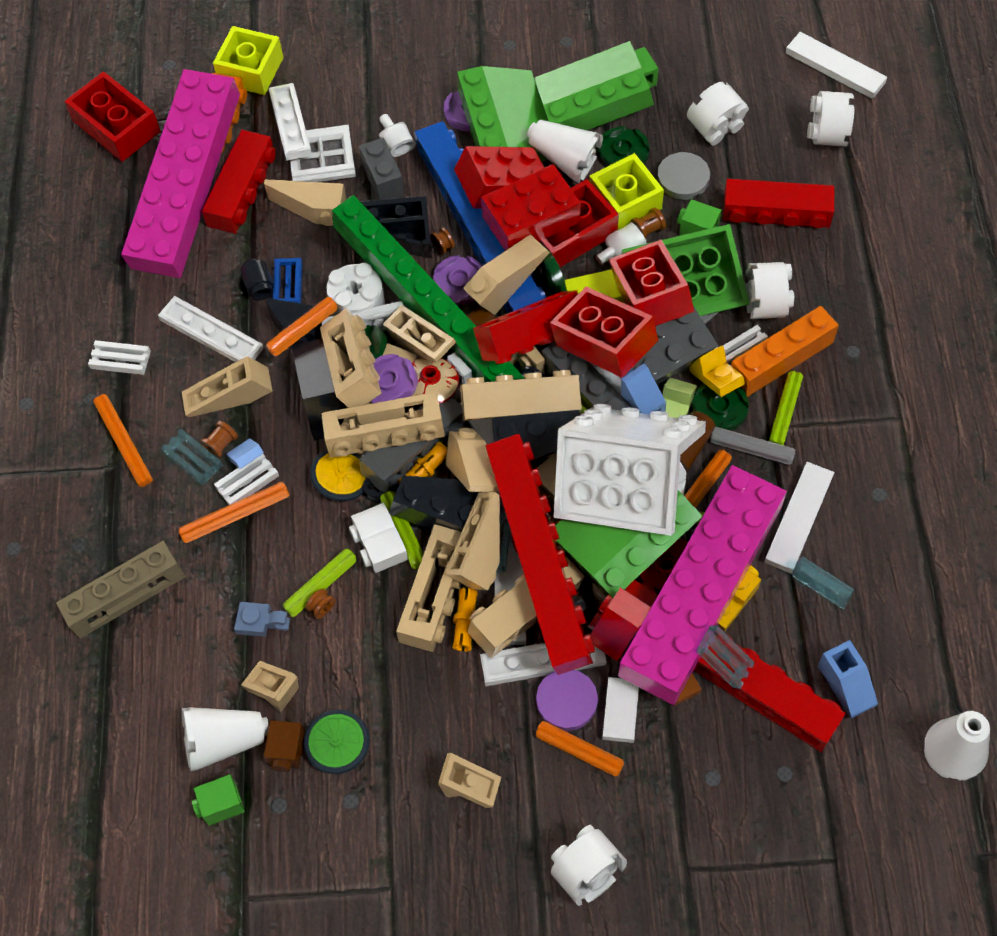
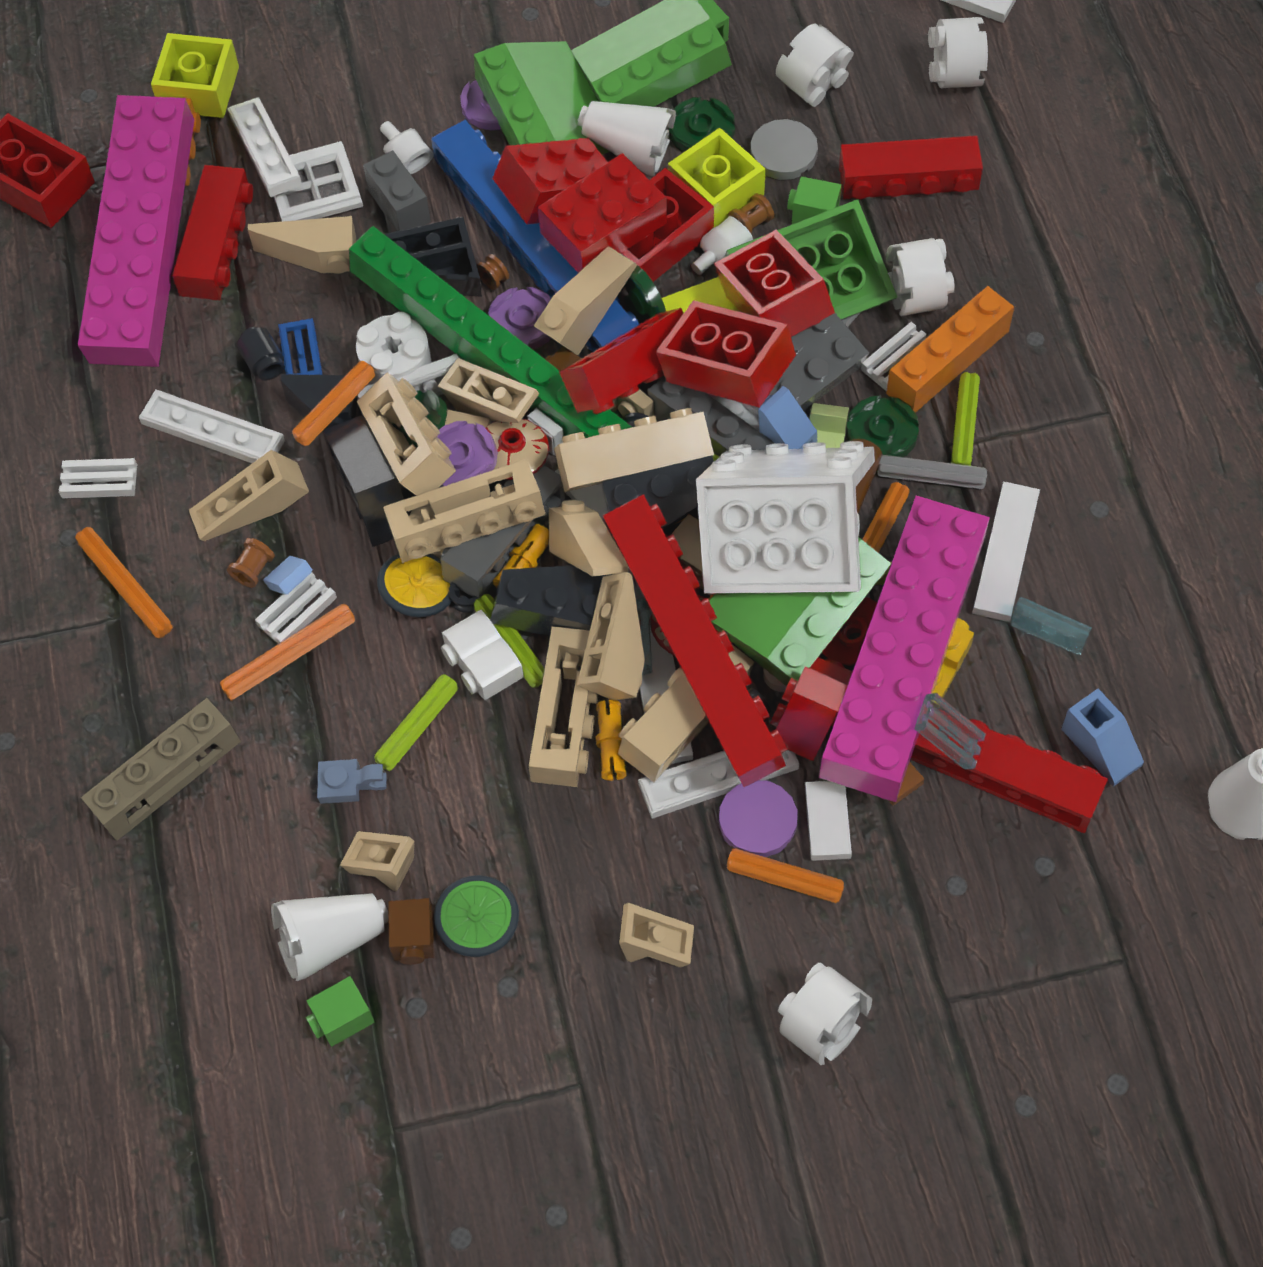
camera: 10 degrees left, 0 degrees up
(177, 443) = (195, 575): clear light blue tile -> none
(320, 603) = (423, 748): dark orange bush -> none
(716, 372) = (871, 387): yellow slope -> none

